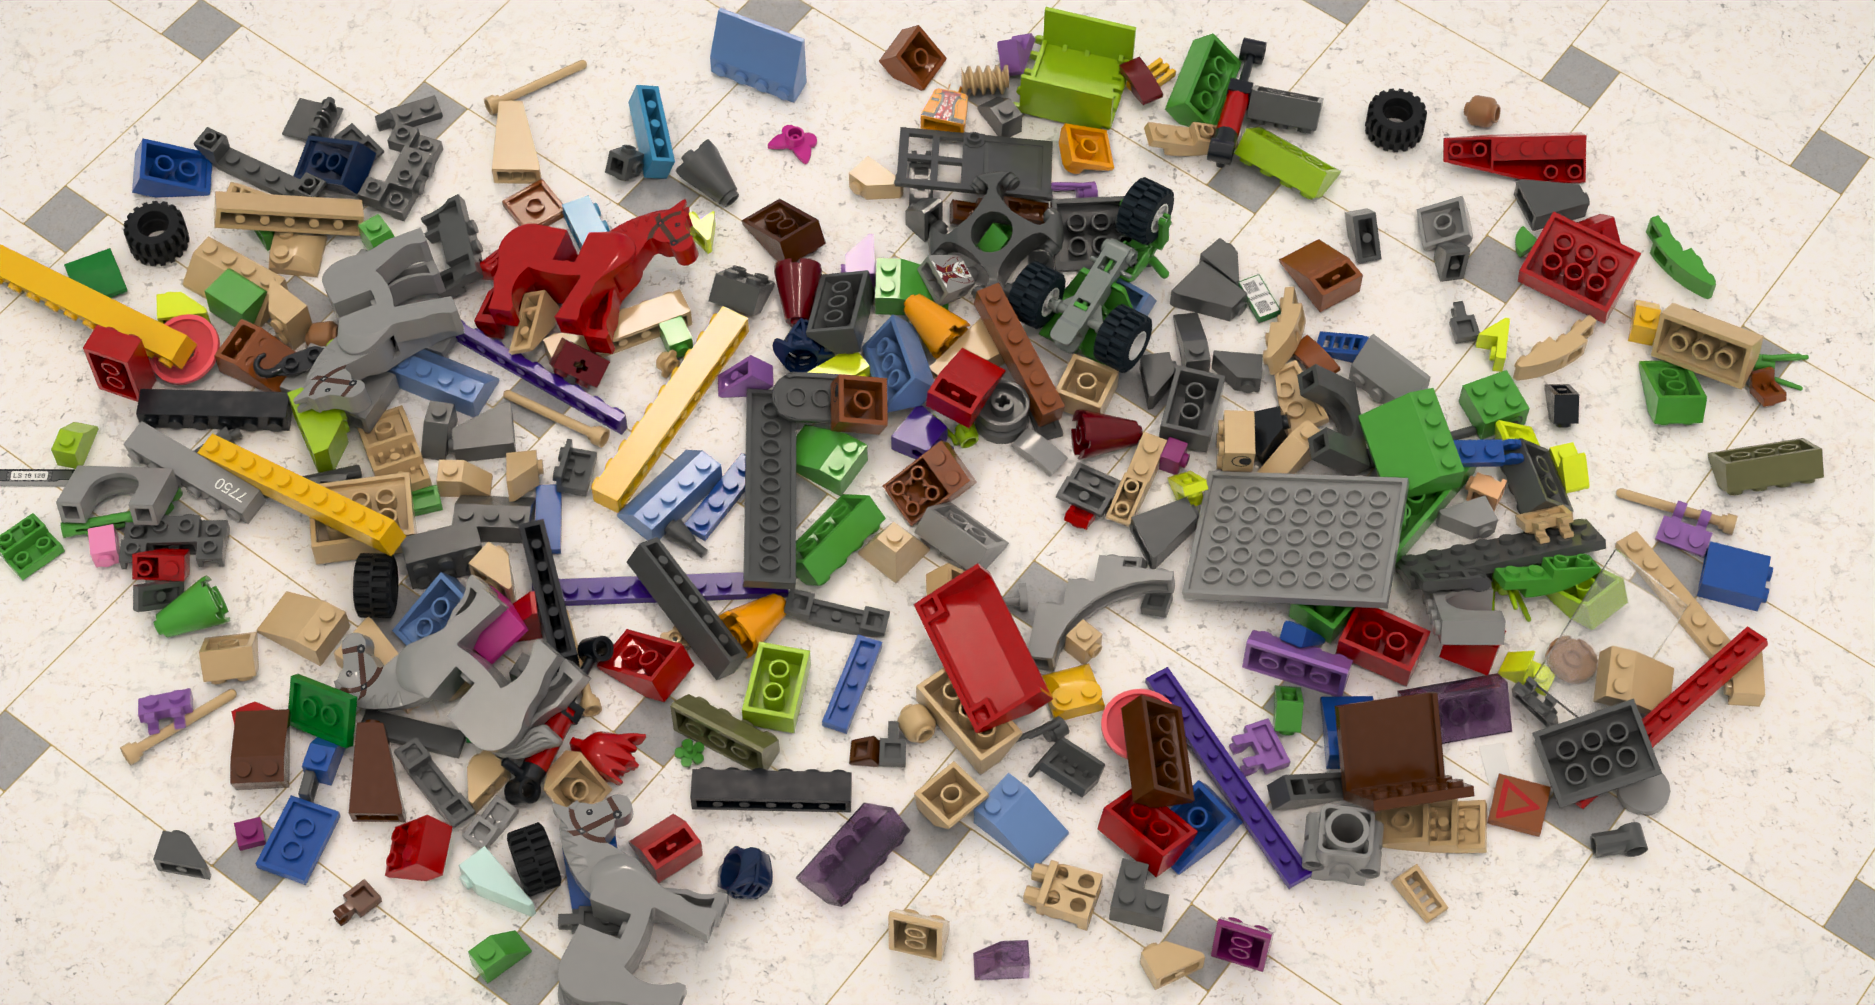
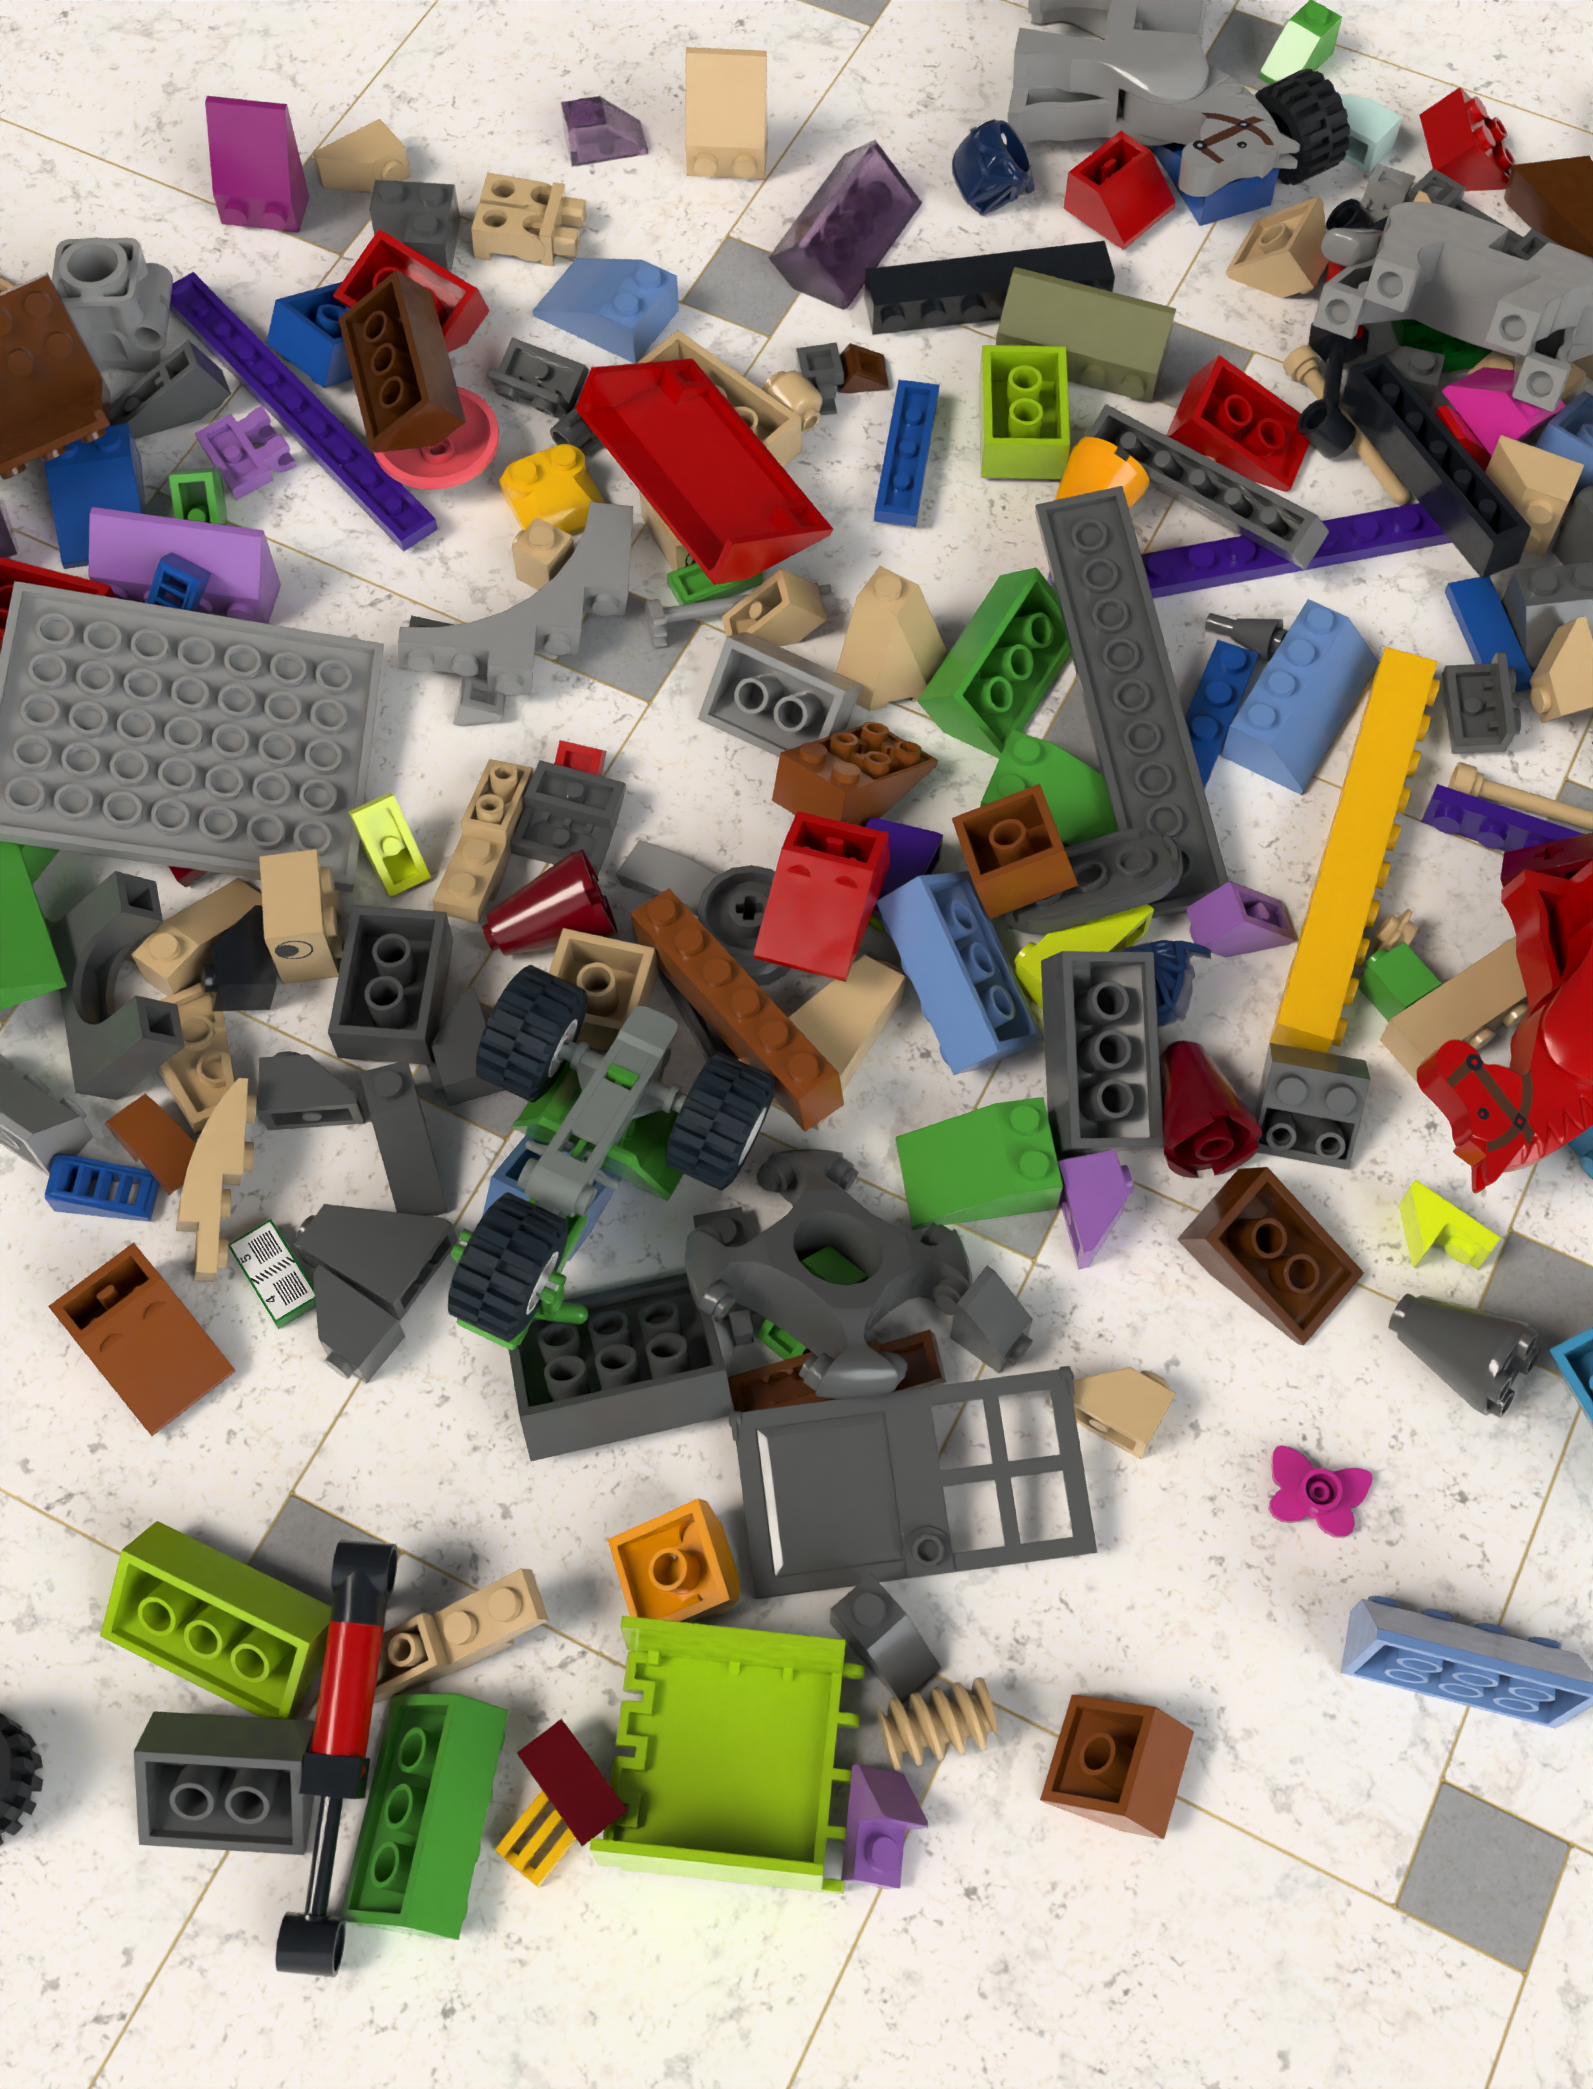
camera: 170 degrees right, 5 degrees up
(358, 900) = (1519, 84): reddish brown plate -> none
(609, 753) = (1244, 282): red piece -> none
(834, 616) = (957, 552): dark grey slope -> none
(919, 171) = (1026, 1438): dark grey hinge -> none
(934, 324) = (910, 1063): light orange cone -> none
(946, 110) = (1003, 1623): torso -> none
(947, 277) = (910, 1179): light grey torso -> none
(949, 796) = (714, 292): tan slope -> none
(1082, 190) = (662, 1460): medium lavender plant -> none
(1163, 529) = (428, 761): dark grey slope -> none
(1174, 456) = (416, 890): magenta plate -> none
(1363, 234) = (51, 1458): dark grey slope -> none

